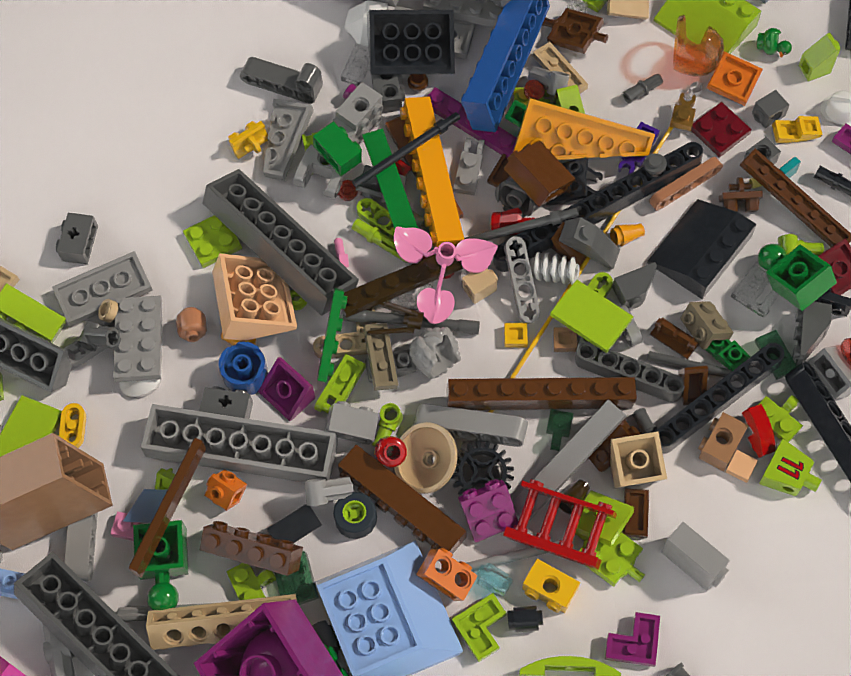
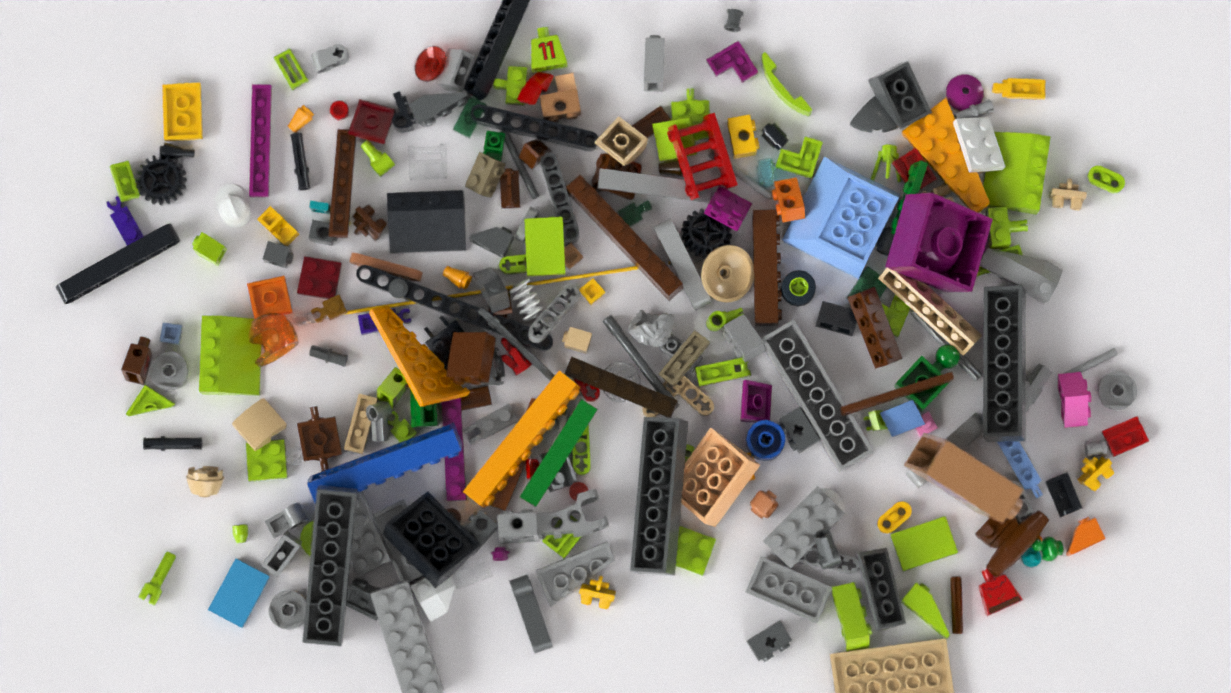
camera: 130 degrees left, 15 degrees up
(108, 310) = (802, 565): tan tile -> none
(225, 489) = (851, 380): orange brick -> none
(322, 490) = (805, 315): light grey piece -> none
(330, 344) = (698, 399): green plate -> none
(337, 148) = (564, 508): green brick -> none
(340, 253) = (635, 446): bright pink bar -> none
(374, 236) = (598, 442): lime pin -> none
(397, 454) = (742, 297): red head -> none
(412, 319) = (644, 357): dark brown plant -> none
(439, 128) = (486, 458): black bar -> none
(474, 256) = (564, 354): bright pink plant -> none
(534, 90) = (397, 424): clear red plate -> none
(644, 421) = (587, 162): dark grey pin -> none
(770, 43) = (219, 295): green animal -> none
(796, 276) = (413, 145): green brick -> none

